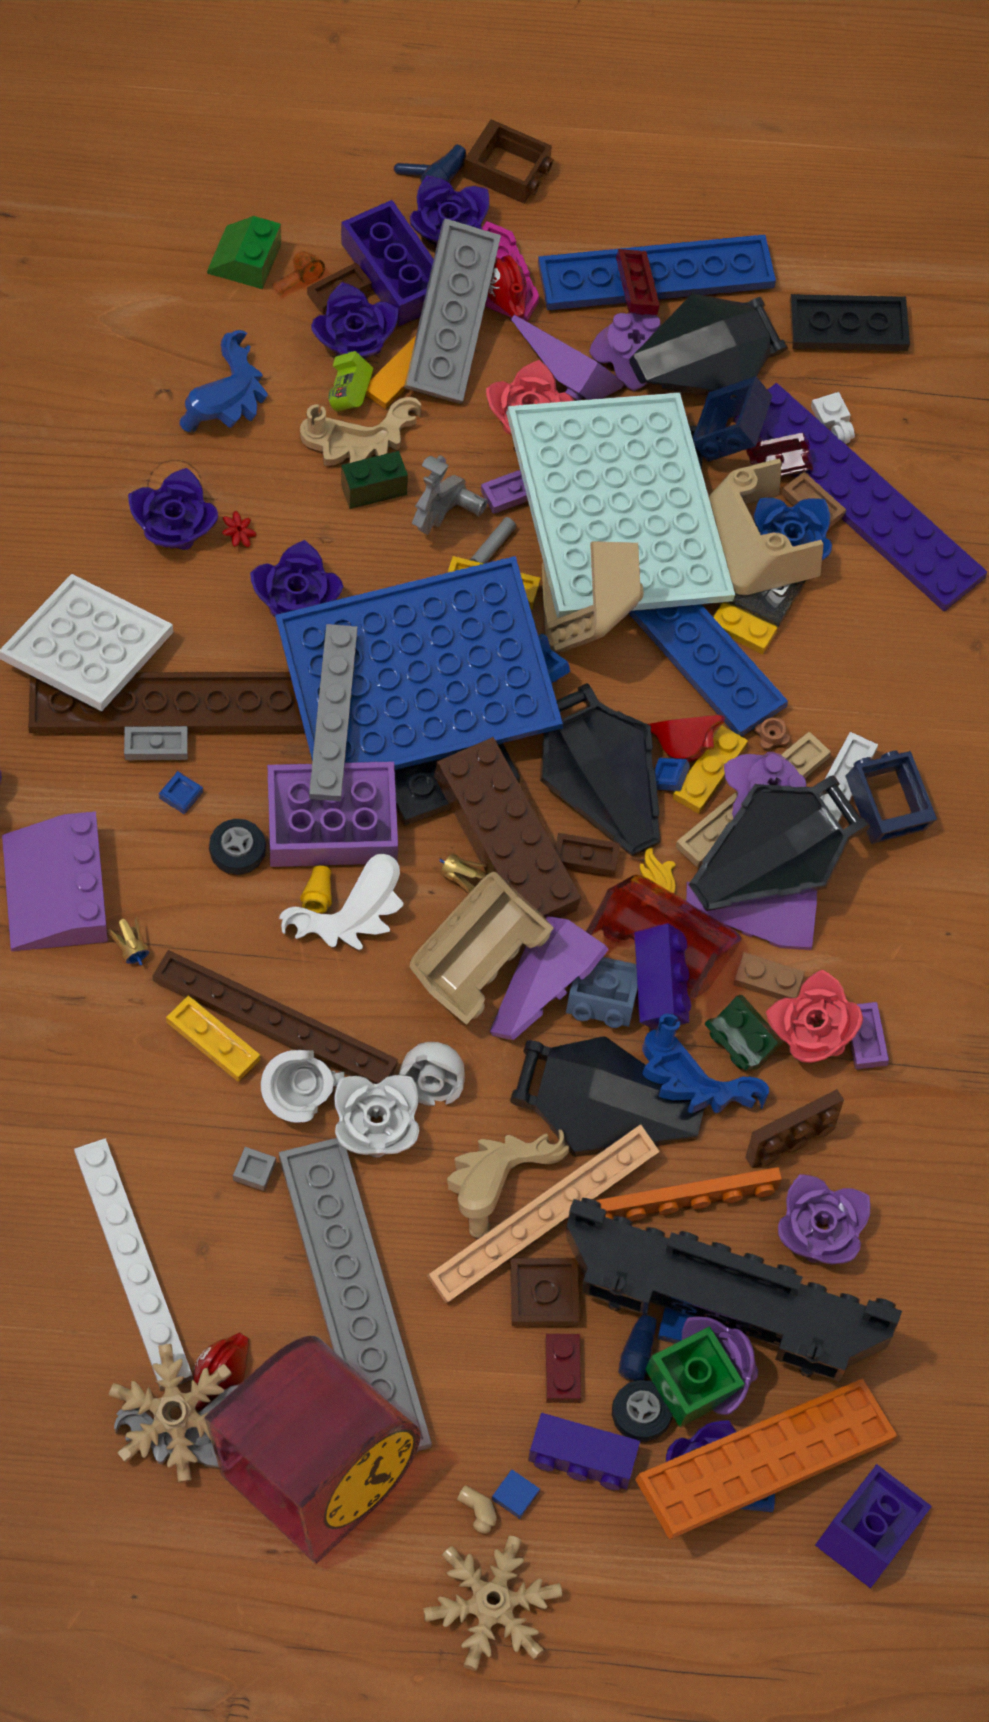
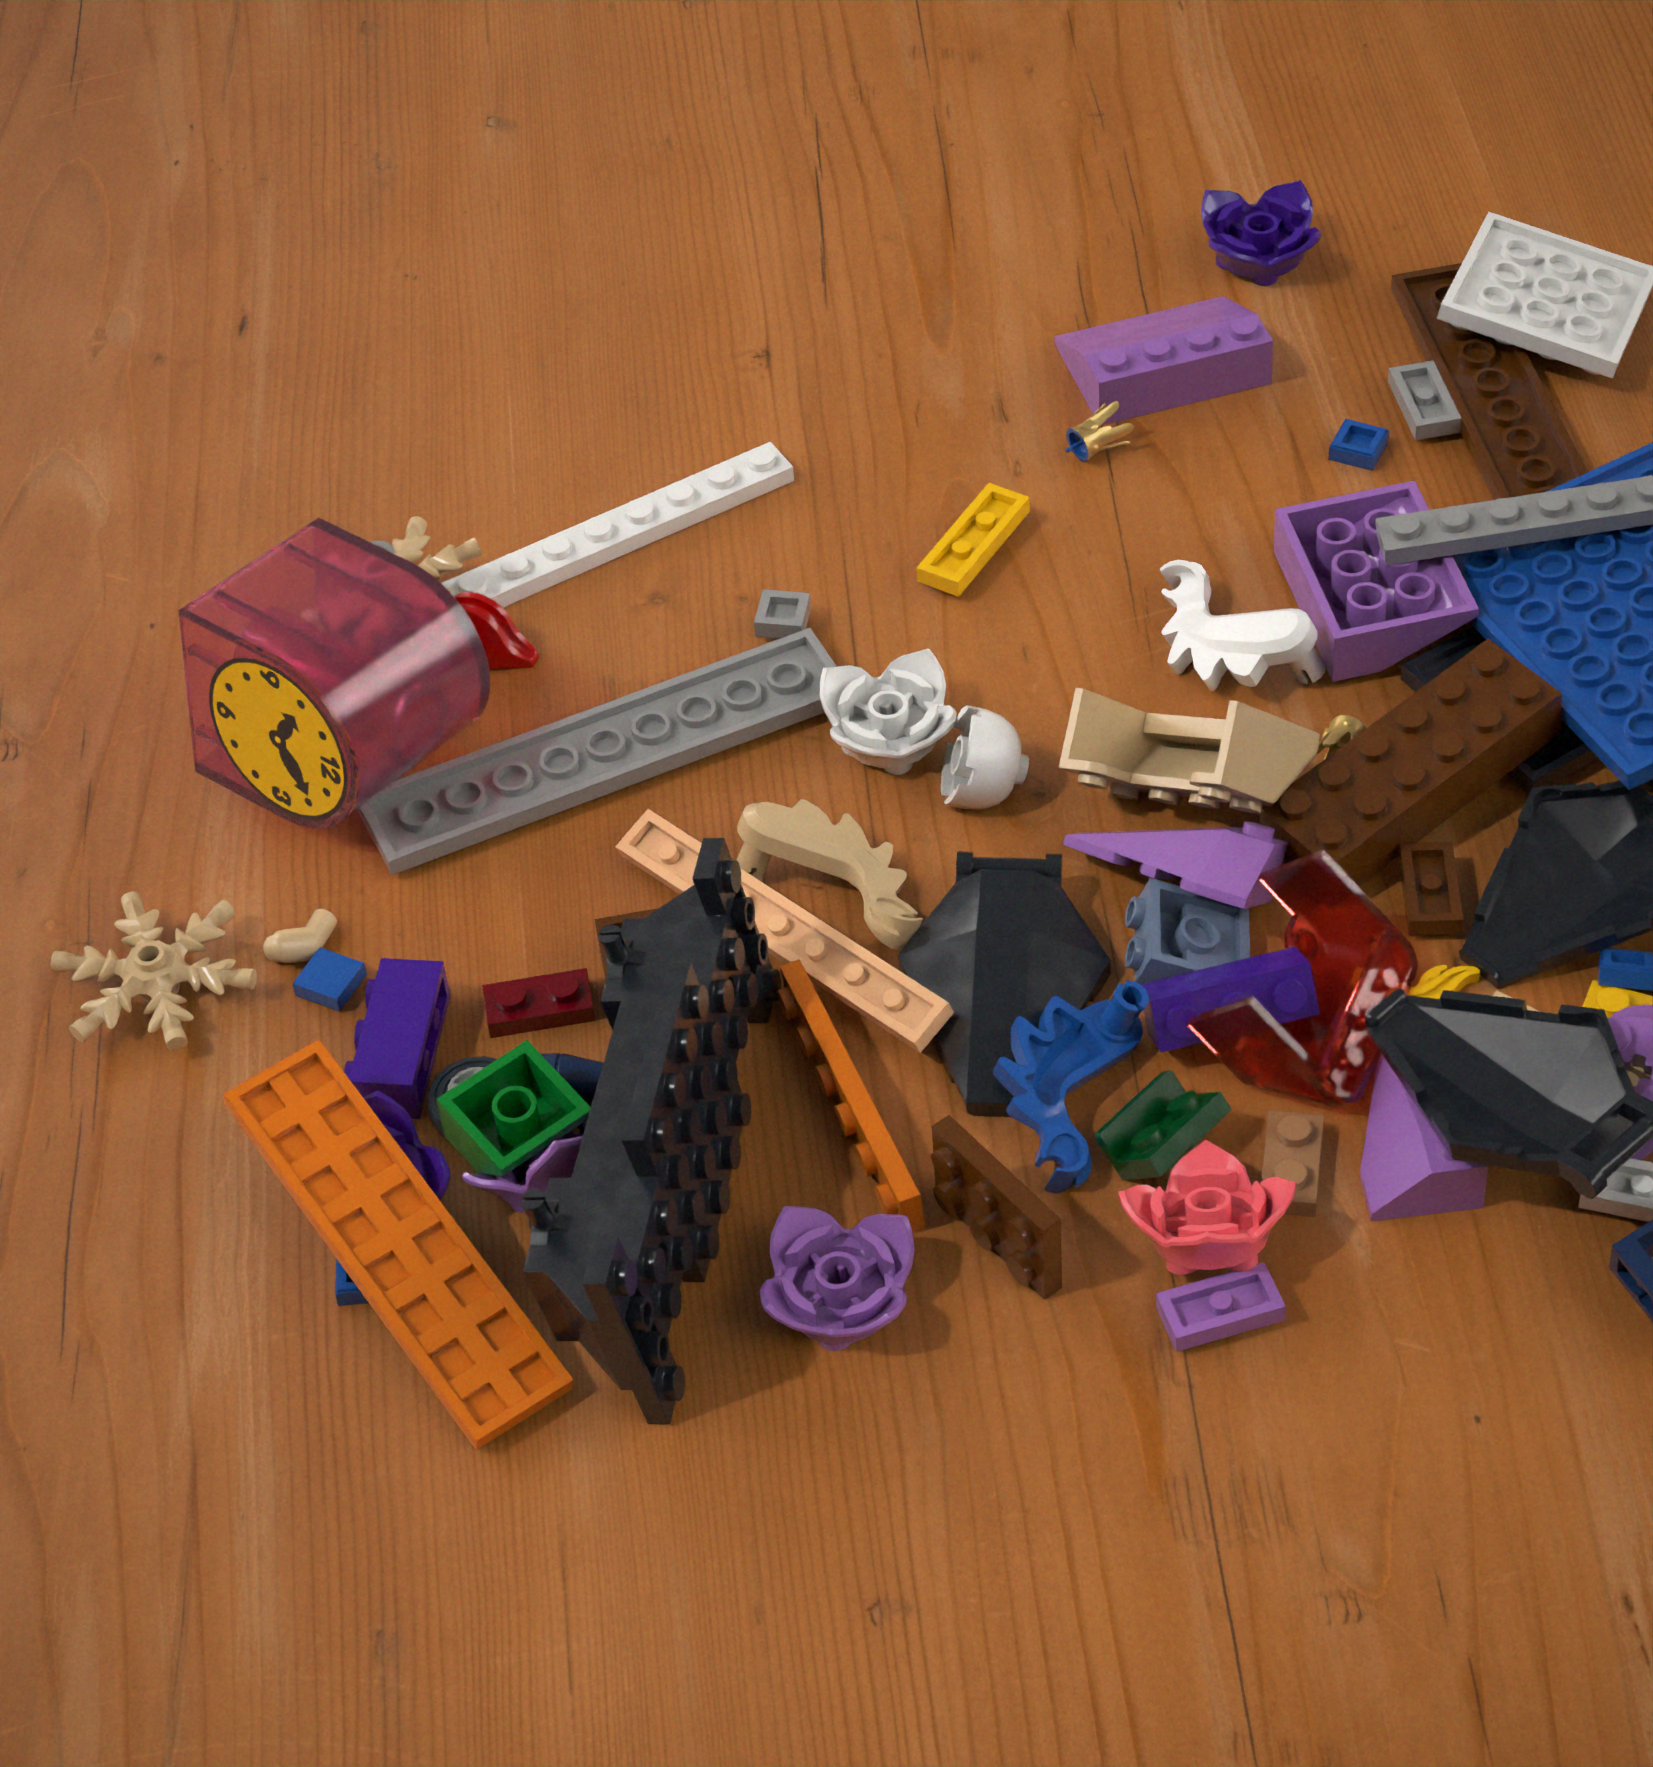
camera: 90 degrees right, 15 degrees down
(239, 835) = (1280, 491): black wheel -> none
(273, 1018) = (1024, 587): reddish brown plate -> none
(297, 1084) = (913, 612): white helmet -> none
(317, 891) = (1245, 596): yellow cone -> none
(873, 1526) = (317, 1429): dark purple slope -> none

